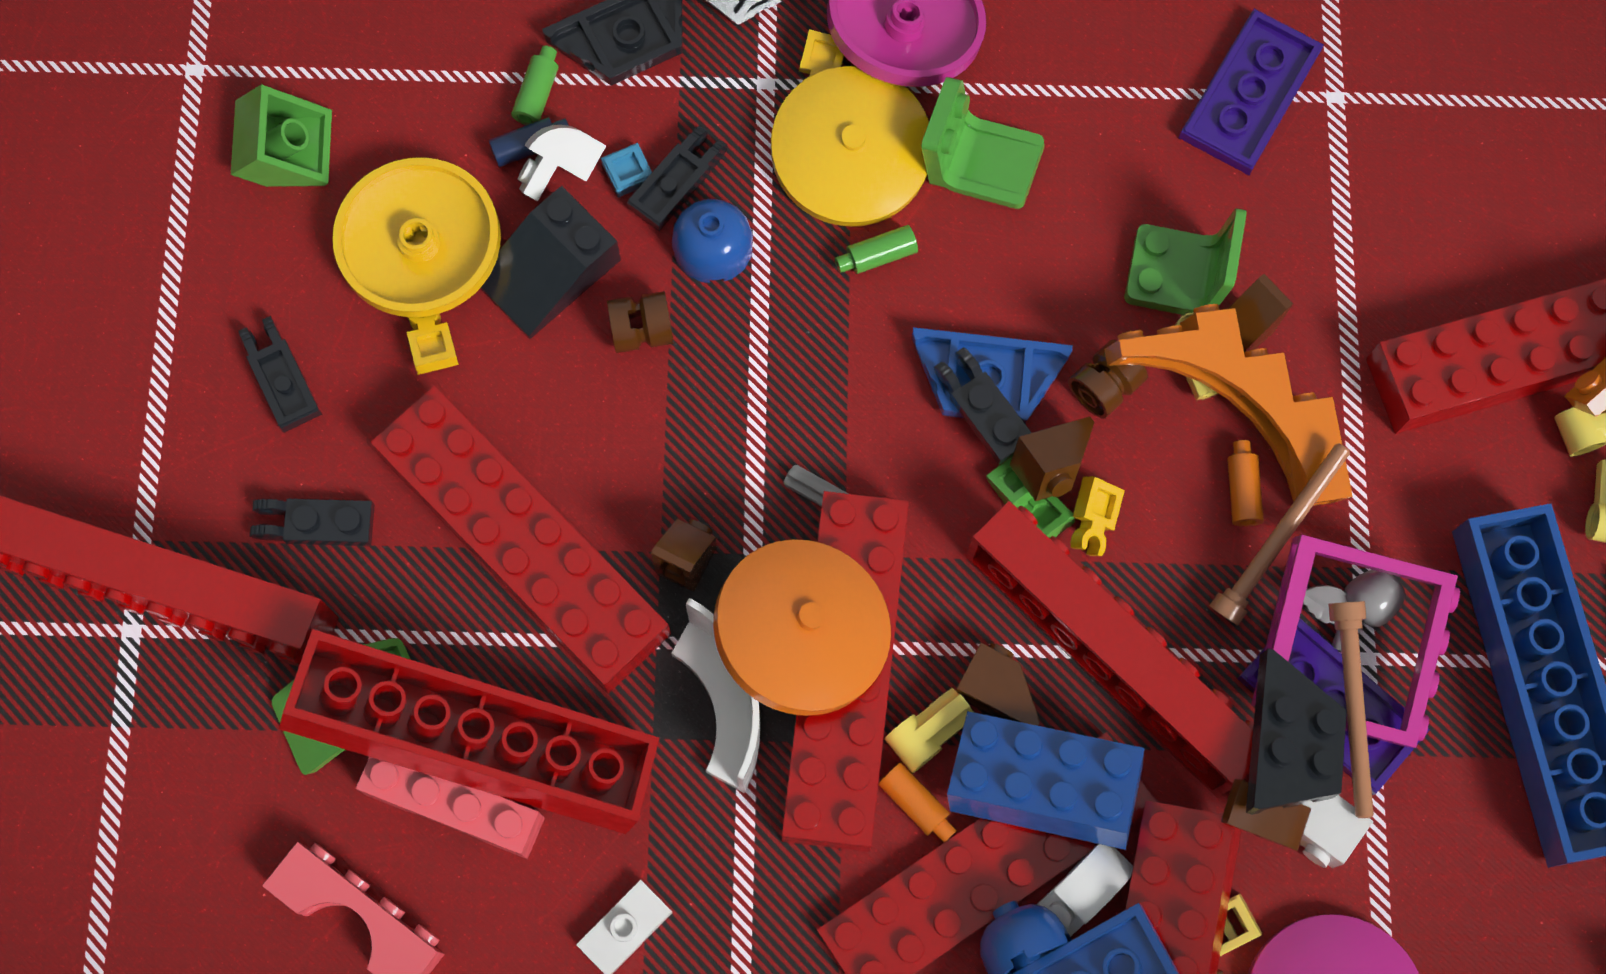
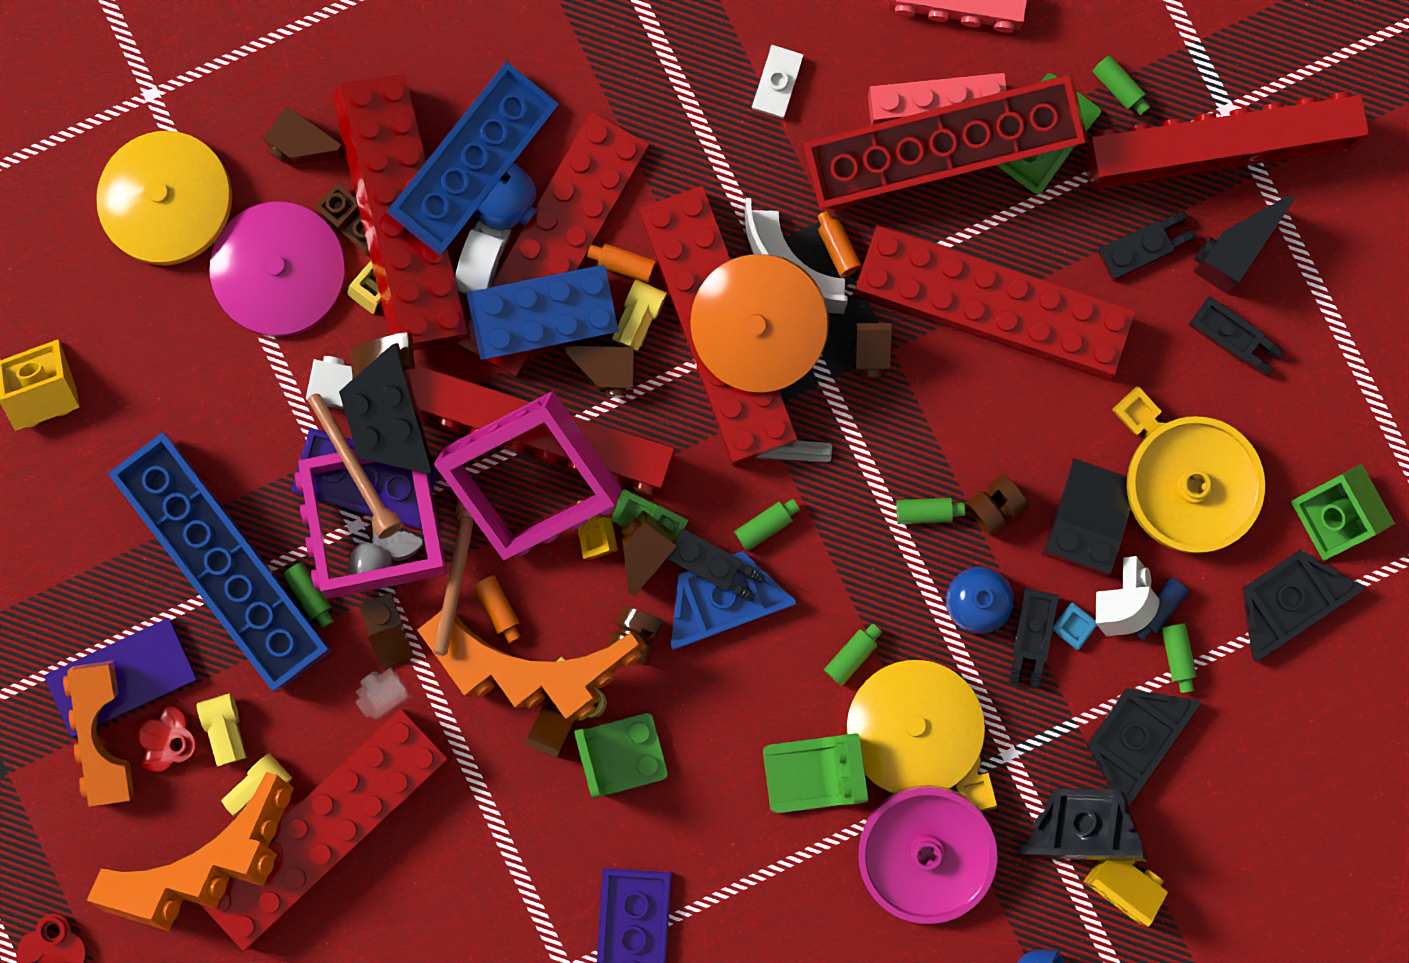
camera: 155 degrees right, 10 degrees up
(208, 457) = (1232, 253): none -> black slope
(231, 715) = (1121, 85): none -> bright green cylinder
(388, 83) = (1291, 600): none -> black wing
(658, 693) = (838, 245): none -> orange cylinder
(717, 357) = (928, 510): none -> bright green cylinder
(902, 428) = (766, 524): none -> bright green cylinder
(1111, 634) = (575, 444): none -> dark pink window
(1382, 518) = (386, 631): none -> reddish brown slope
(1417, 454) = (381, 694): none -> clear brick
(1462, 621) = (311, 600): none -> bright green cylinder

